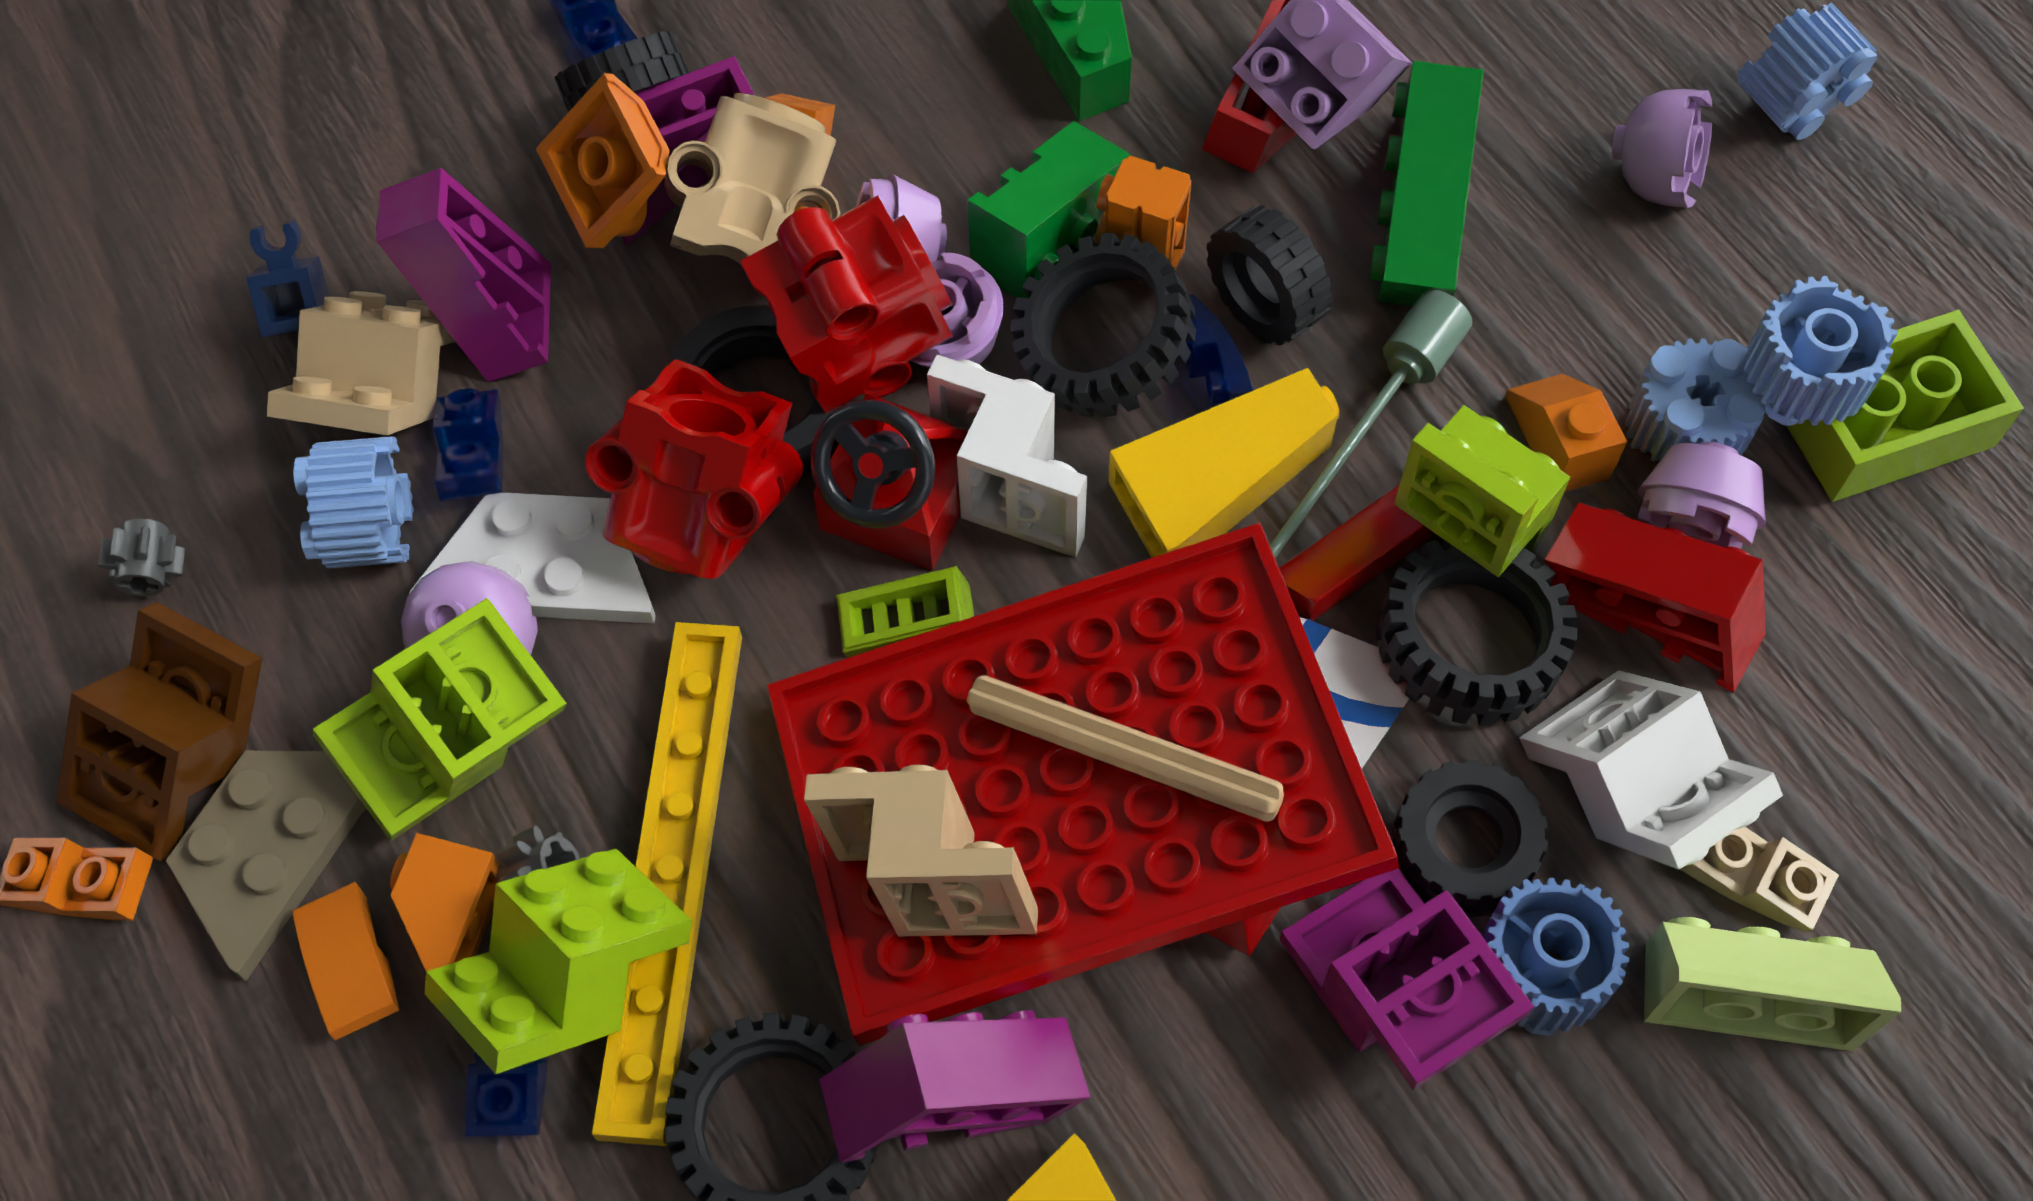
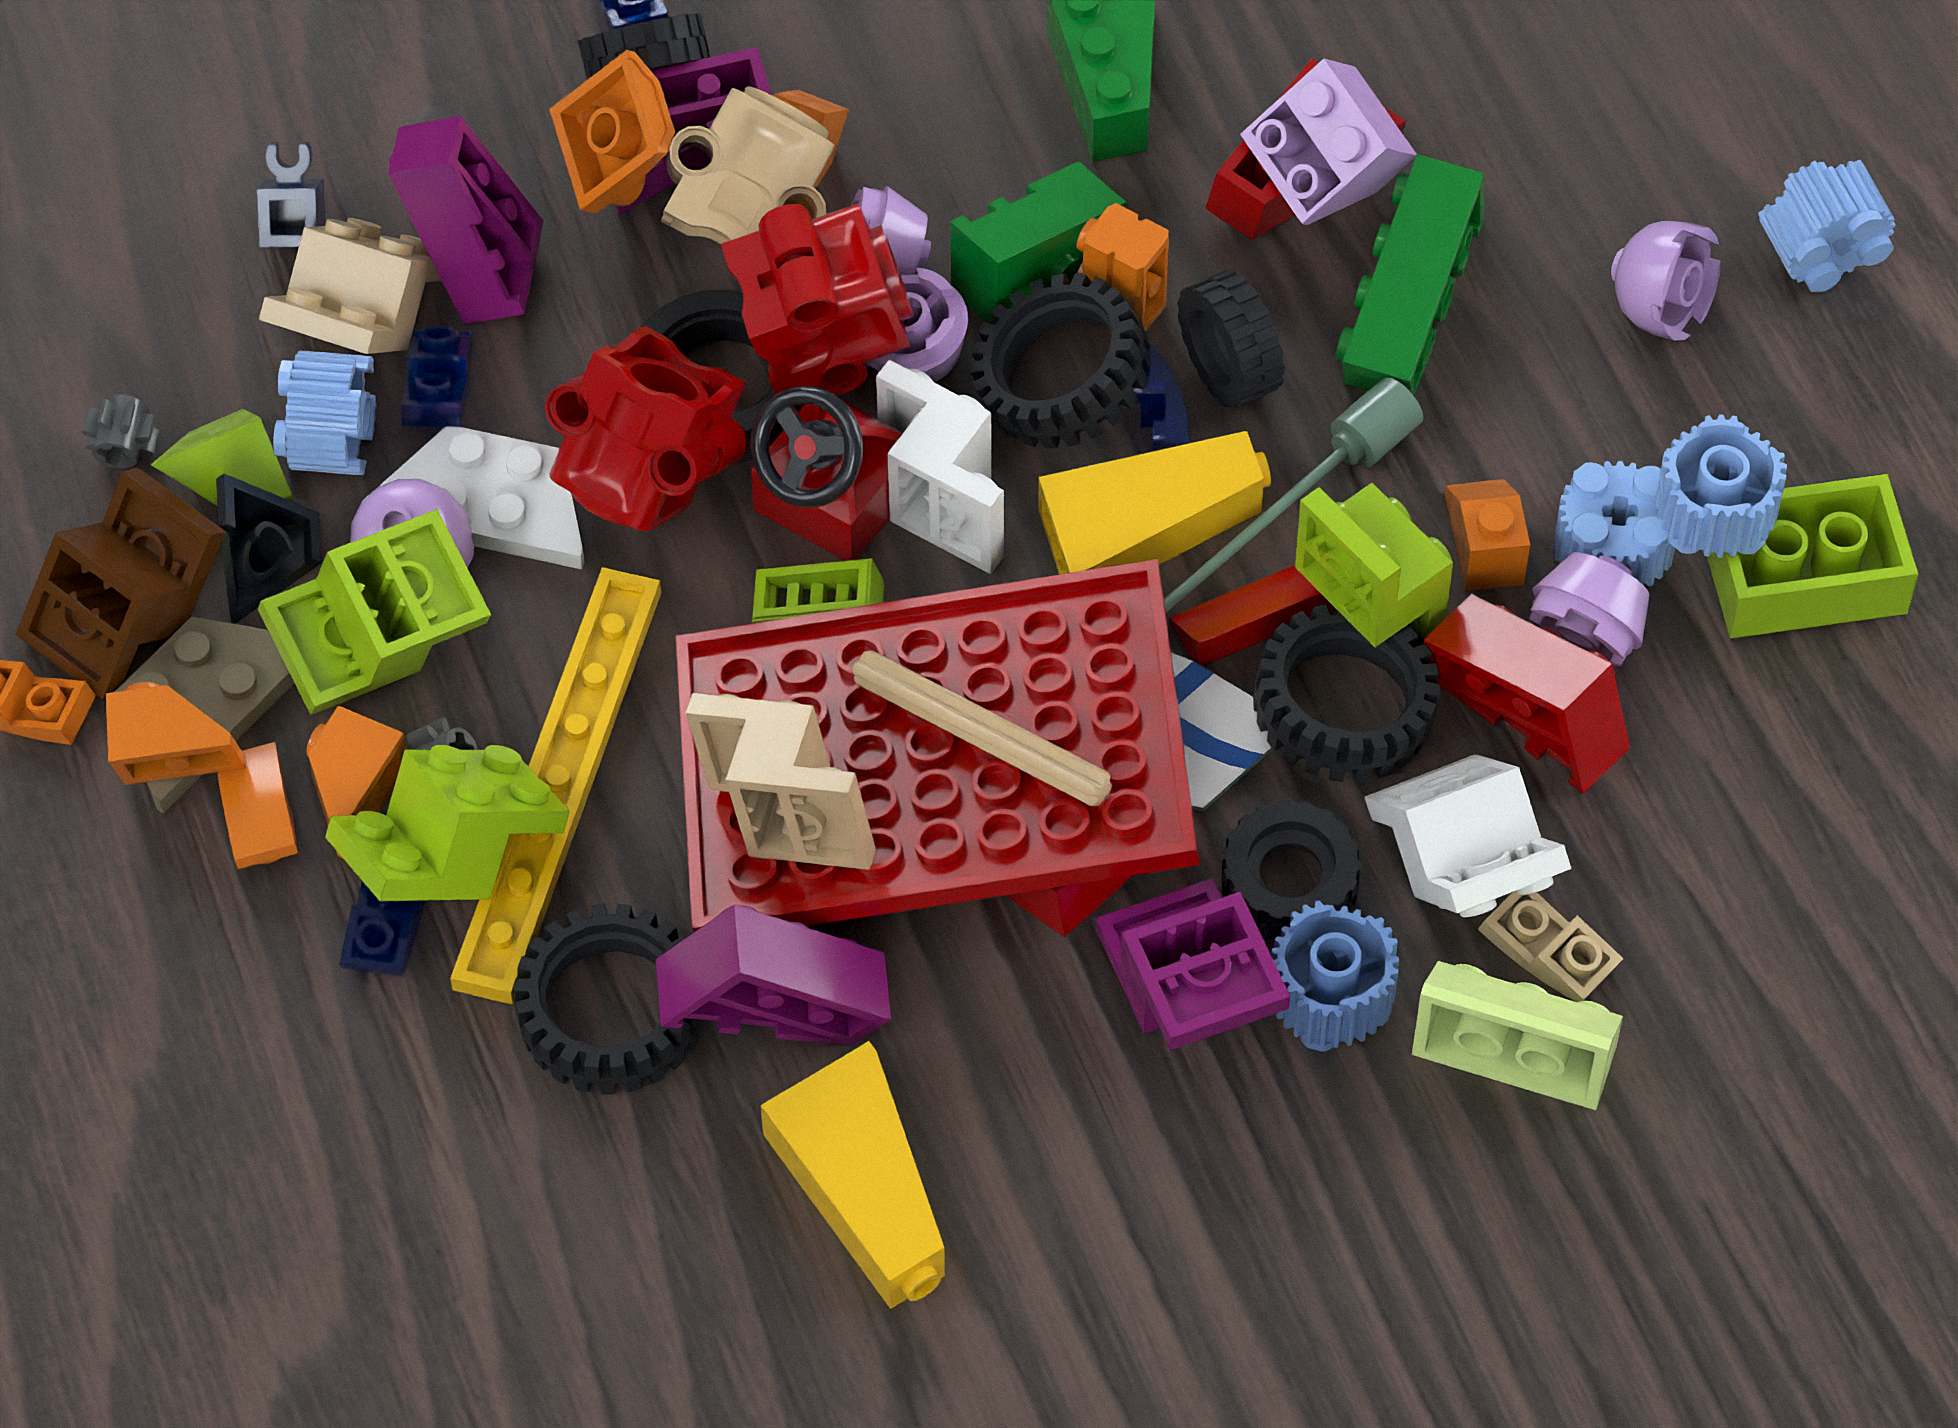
camera: 10 degrees right, 5 degrees down
(223, 903) = (164, 736): none -> orange slope
(261, 576) = (227, 446): none -> lime slope
(309, 656) = (264, 544): none -> black slope

